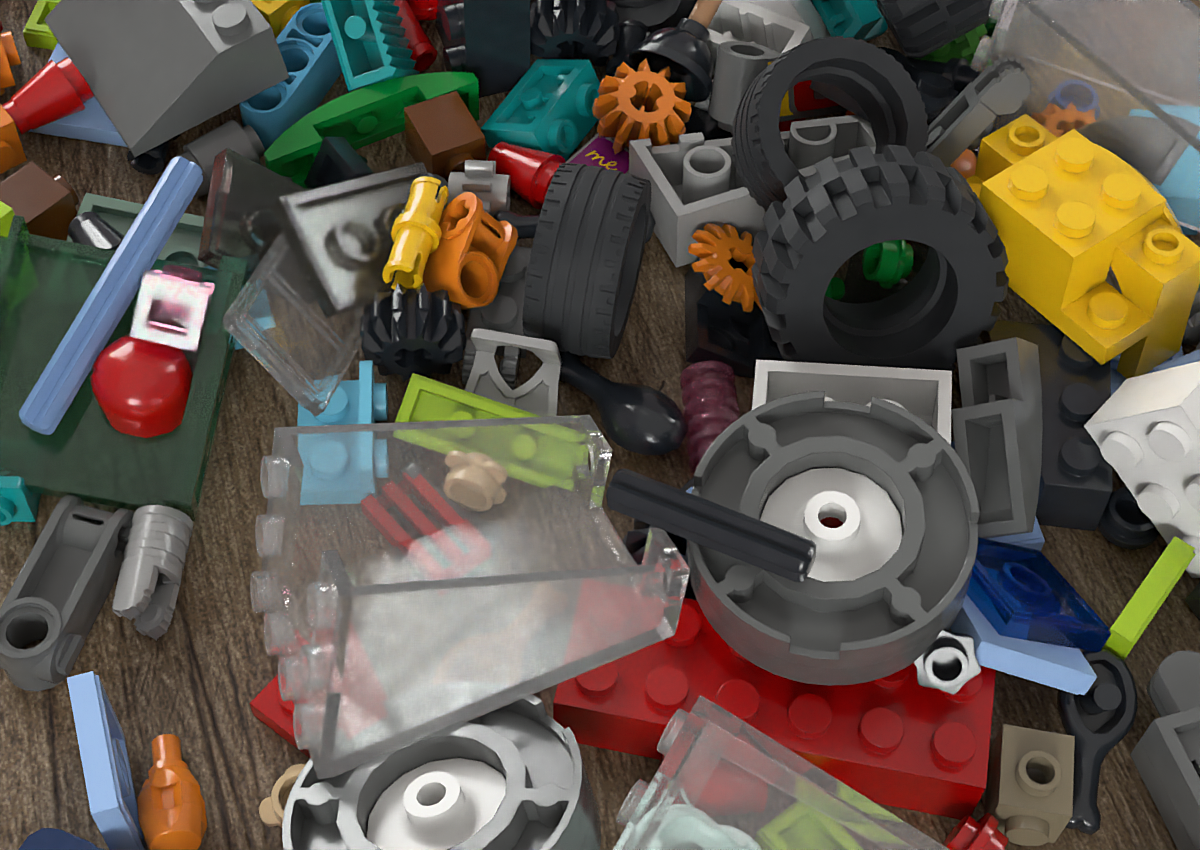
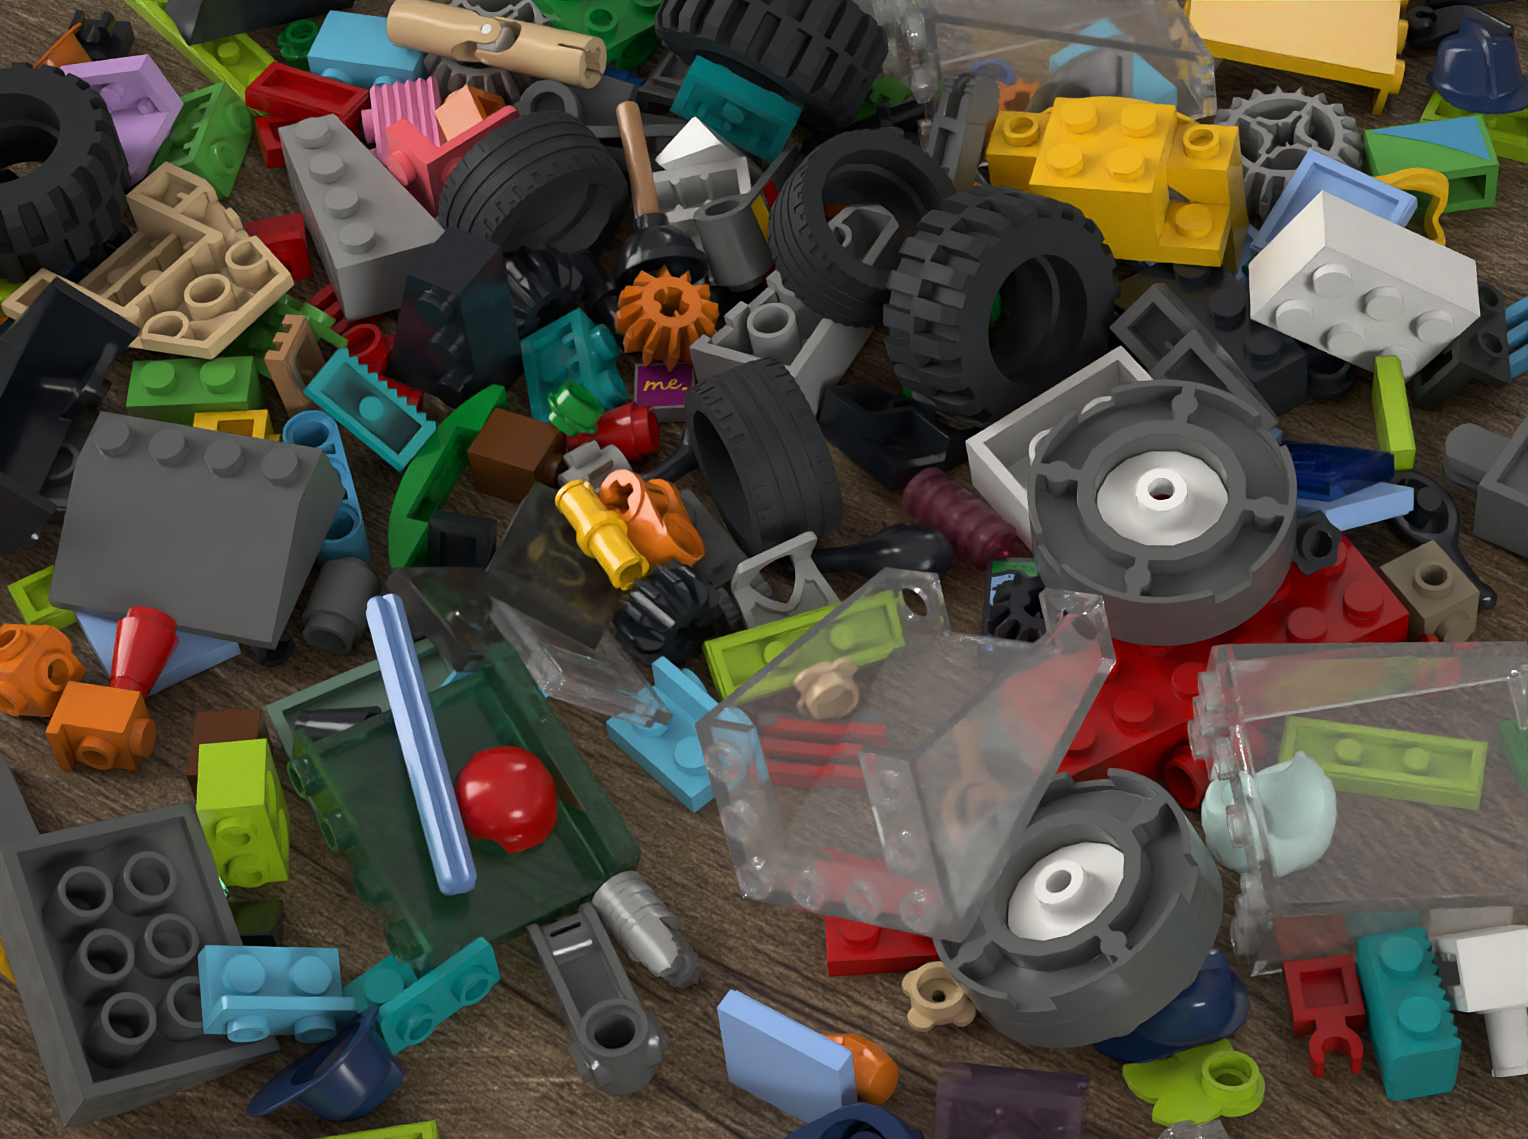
camera: 30 degrees left, 5 degrees down
(172, 307) = (488, 714): clear pink brick -> none
(504, 129) = (574, 409): none -> green plate
(711, 525) = (1087, 554): black axle -> none
(715, 250) = (844, 386): orange gear -> none

